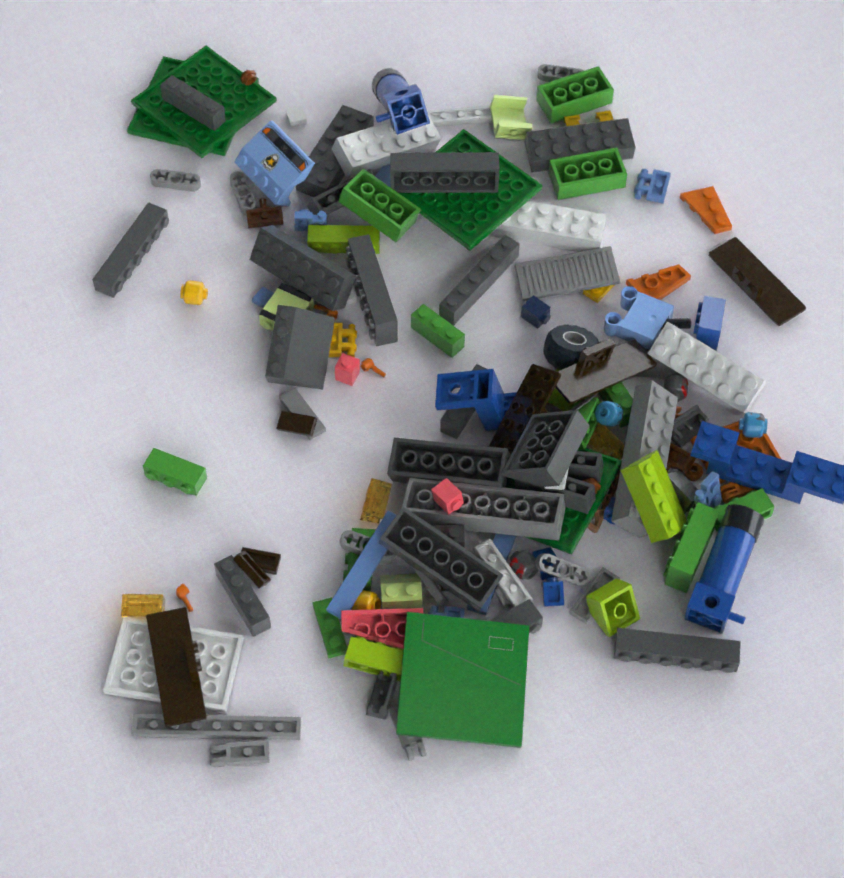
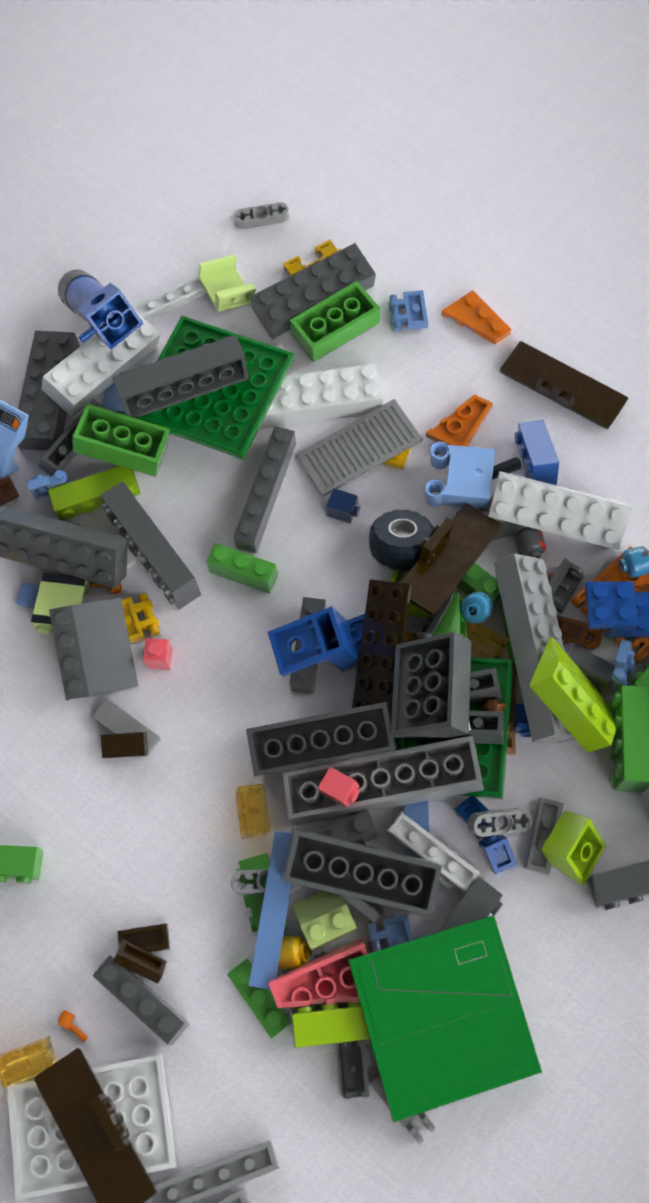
camera: 15 degrees left, 10 degrees up
(368, 364) = (178, 637): orange hand -> none
(523, 564) = (451, 829): dark grey head -> none
(574, 94) = (285, 234): bright green brick -> none

